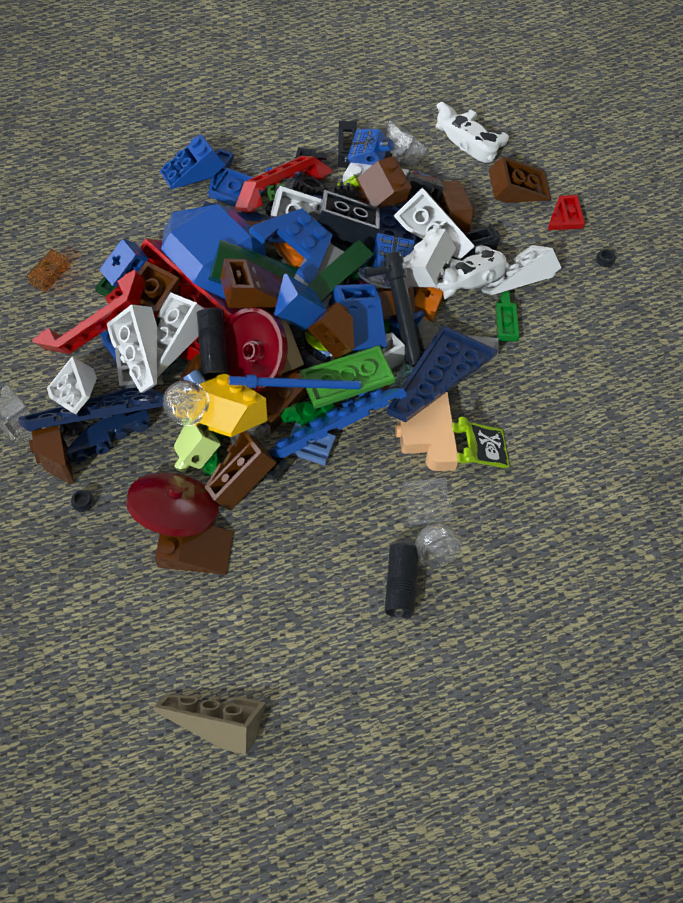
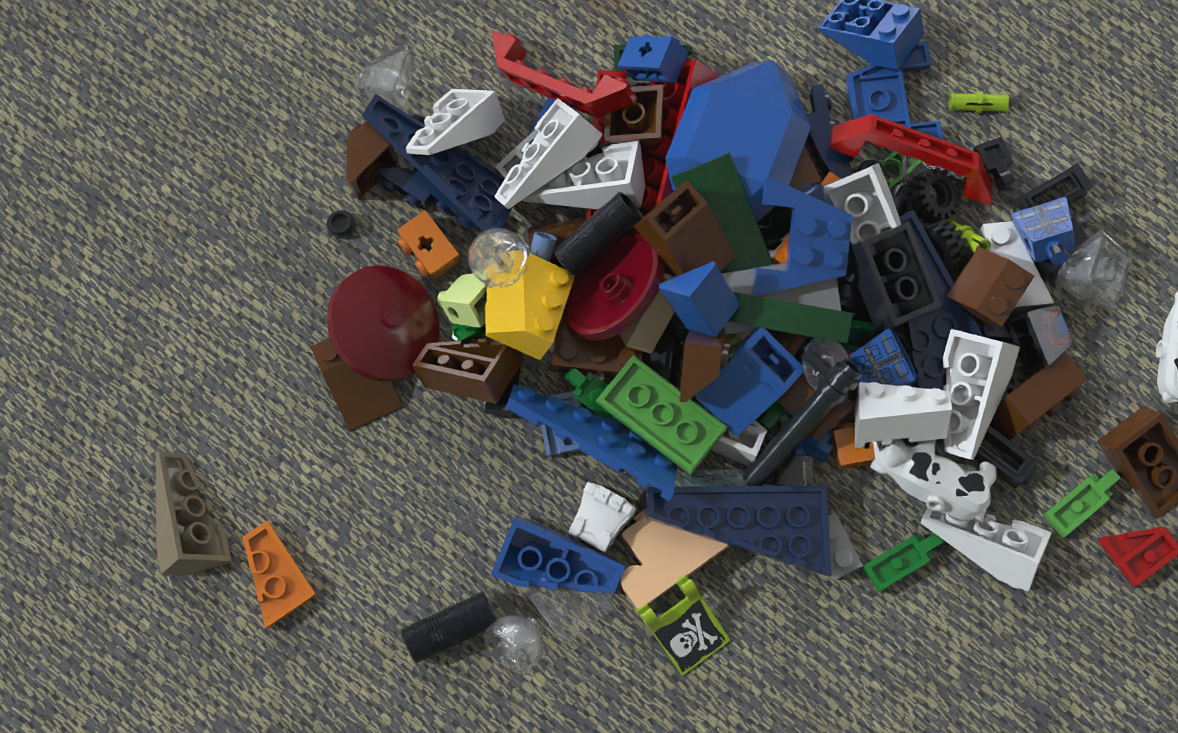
camera: 70 degrees right, 15 degrees up
(147, 448) = (421, 231): none -> orange brick
(252, 381) = (564, 314): blue bar -> none
(264, 154) = (978, 102): none -> lime pin
(294, 676) = (277, 577): none -> orange wing
(386, 450) = (601, 516): none -> white piece
(393, 496) = (550, 560): none -> blue wedge
(524, 223) = (1081, 503): none -> bright green hinge
(605, 258) = (1098, 643): black plate -> none

